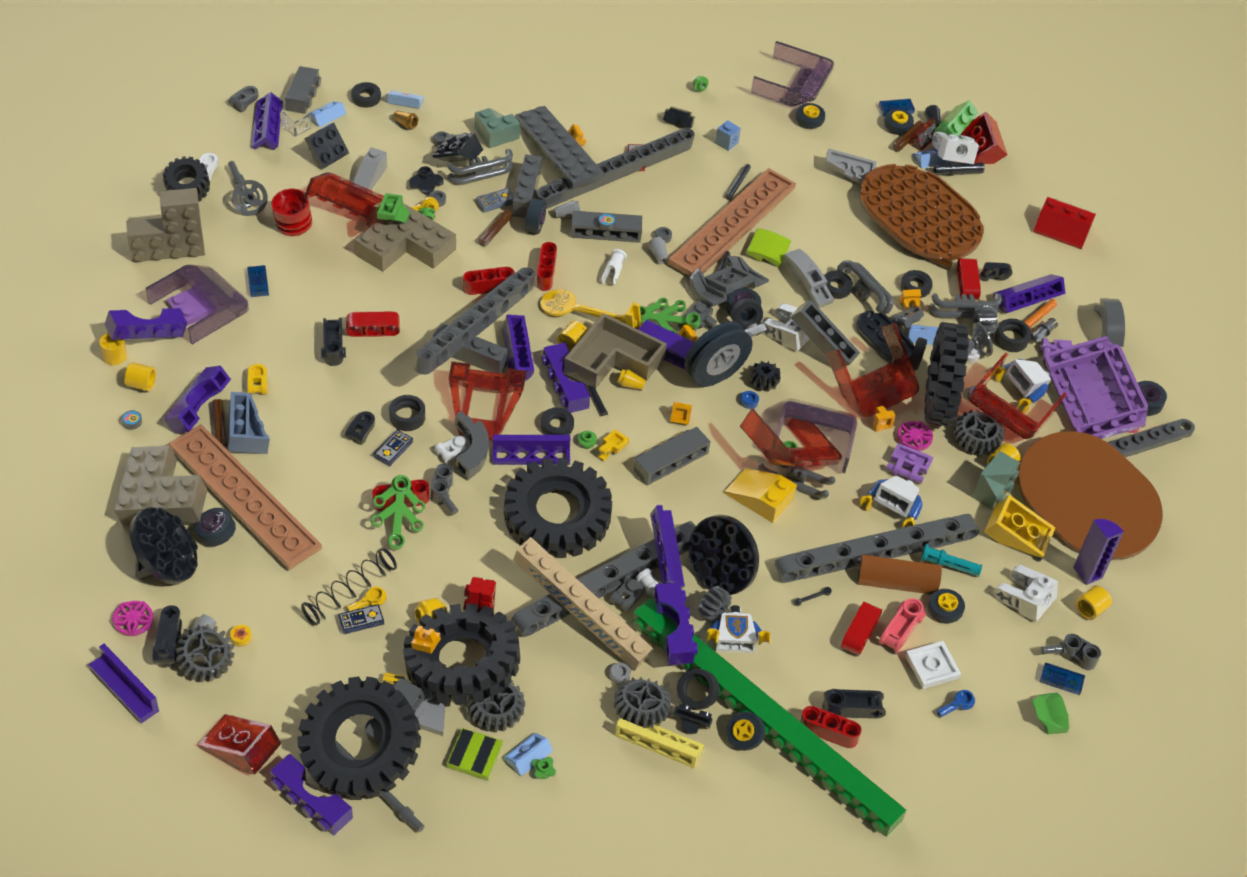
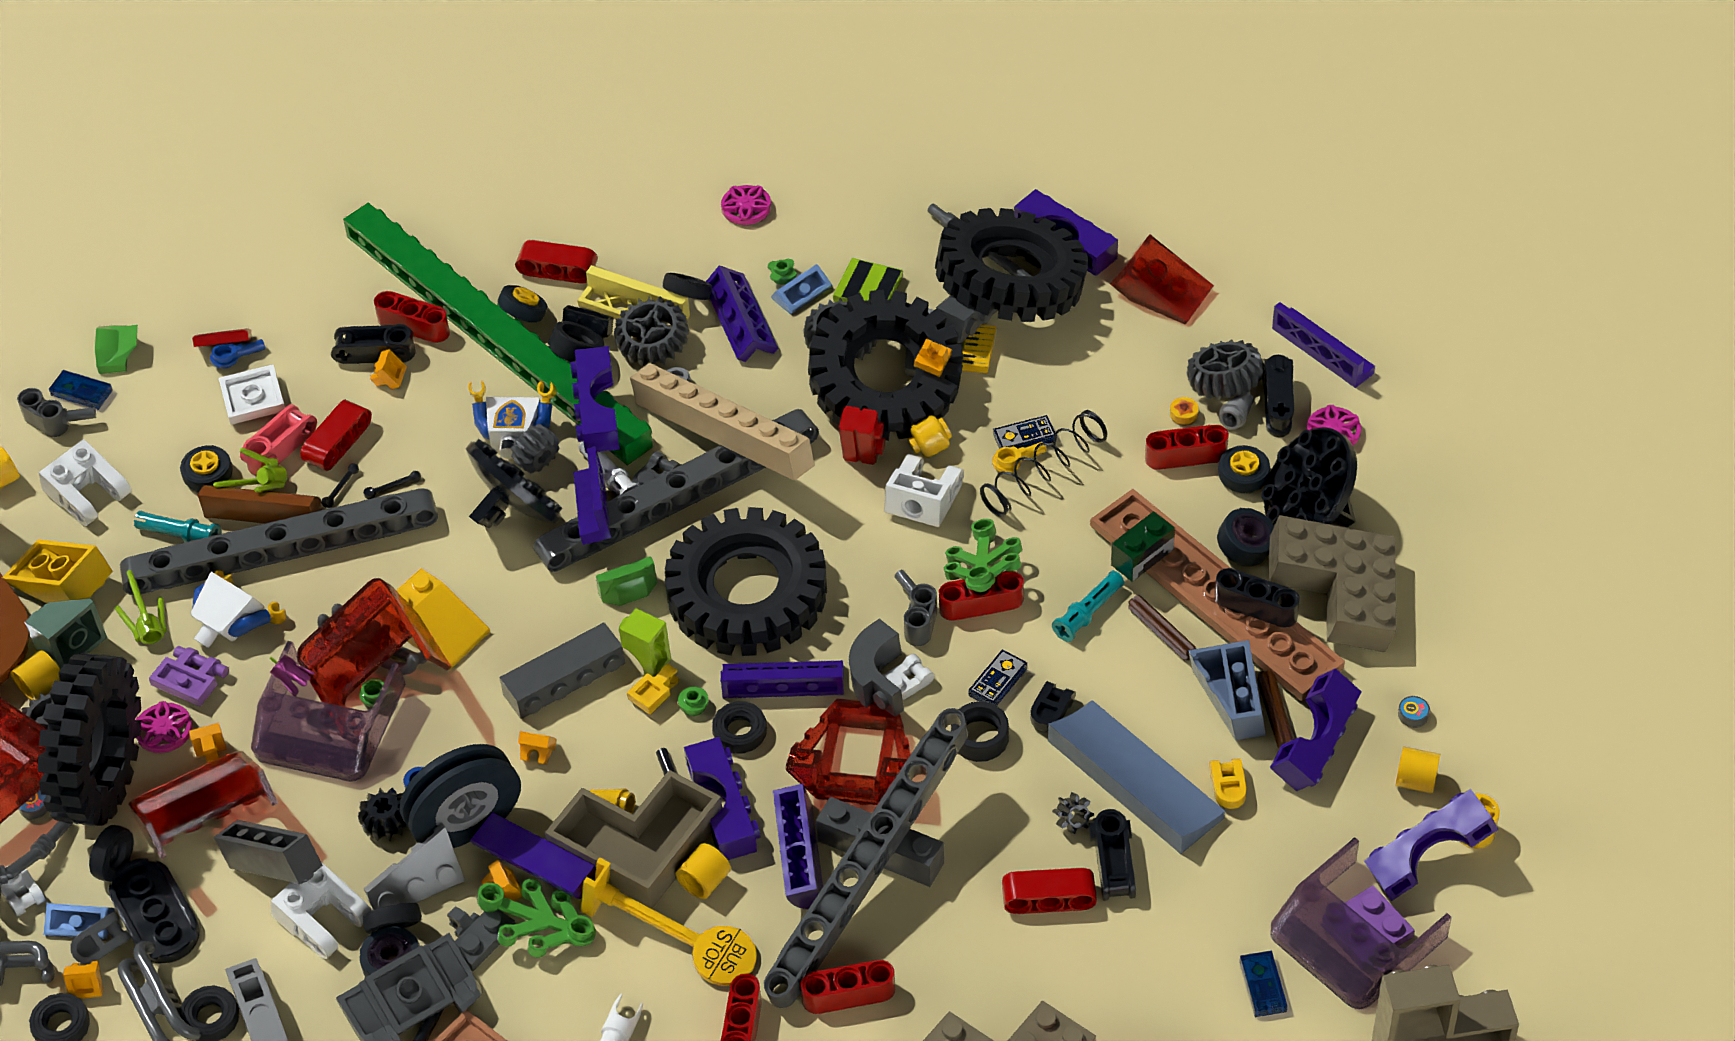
camera: 170 degrees left, 0 degrees up
(206, 583) = (1252, 462): none -> black wheel
(218, 473) = (1257, 597): none -> black beam
(244, 598) = (1186, 446): none -> red beam
(283, 476) = (1161, 626): none -> reddish brown axle
(288, 508) = (1142, 546): none -> dark green brick
(314, 386) = (1135, 776): none -> sand blue arch
(335, 484) = (1080, 613): none -> teal pin
(354, 360) = (1080, 809): none -> black gear
(439, 558) = (919, 497): none -> white brick
(577, 839) = (746, 204): none -> dark pink wheel
(581, 724) = (740, 313): none -> dark purple fence
(606, 747) = (687, 286): none -> black tyre
(620, 455) = (646, 640): none -> lime arch
(636, 509) = (627, 582): none -> bright green slope
(726, 778) = (555, 261): none -> red beam
(836, 679) = (388, 370): none -> light orange tile
(842, 432) = (288, 669): none -> flat silver piece
(843, 608) = (328, 501): none -> black hinge
(899, 593) = (269, 476): none -> lime plant
(947, 494) = (148, 627): none -> lime plant
(970, 712) = (222, 337): none -> red tile

